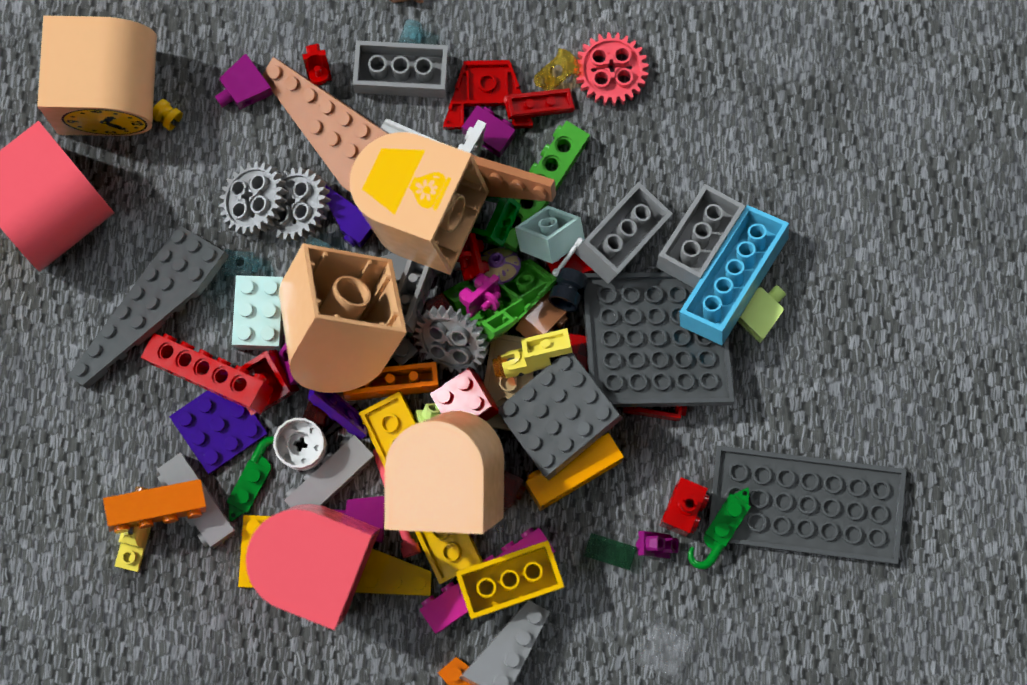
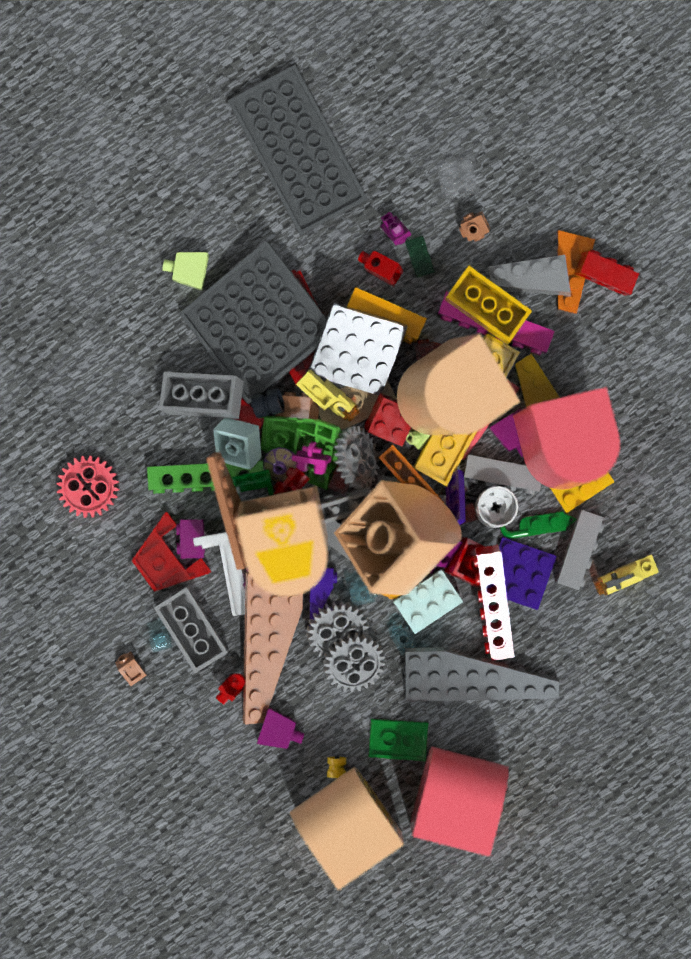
camera: 125 degrees left, 10 degrees up
(147, 192) = (398, 739): none -> green tile
(155, 505) = (605, 570): orange brick -> none
(539, 103) = (148, 518): red tile -> none
(555, 271) = (232, 418): white hinge -> none
(569, 67) = (107, 515): clear yellow piece -> none
(601, 629) = (477, 220): none -> nougat brick
(619, 506) = (387, 271): none -> red torso
(684, 506) = (358, 226): red brick -> none
(699, 235) = (166, 341): light grey brick -> none
(722, 528) = (353, 193): green plate -> none
(734, 275) = (178, 300): medium azure brick -> none

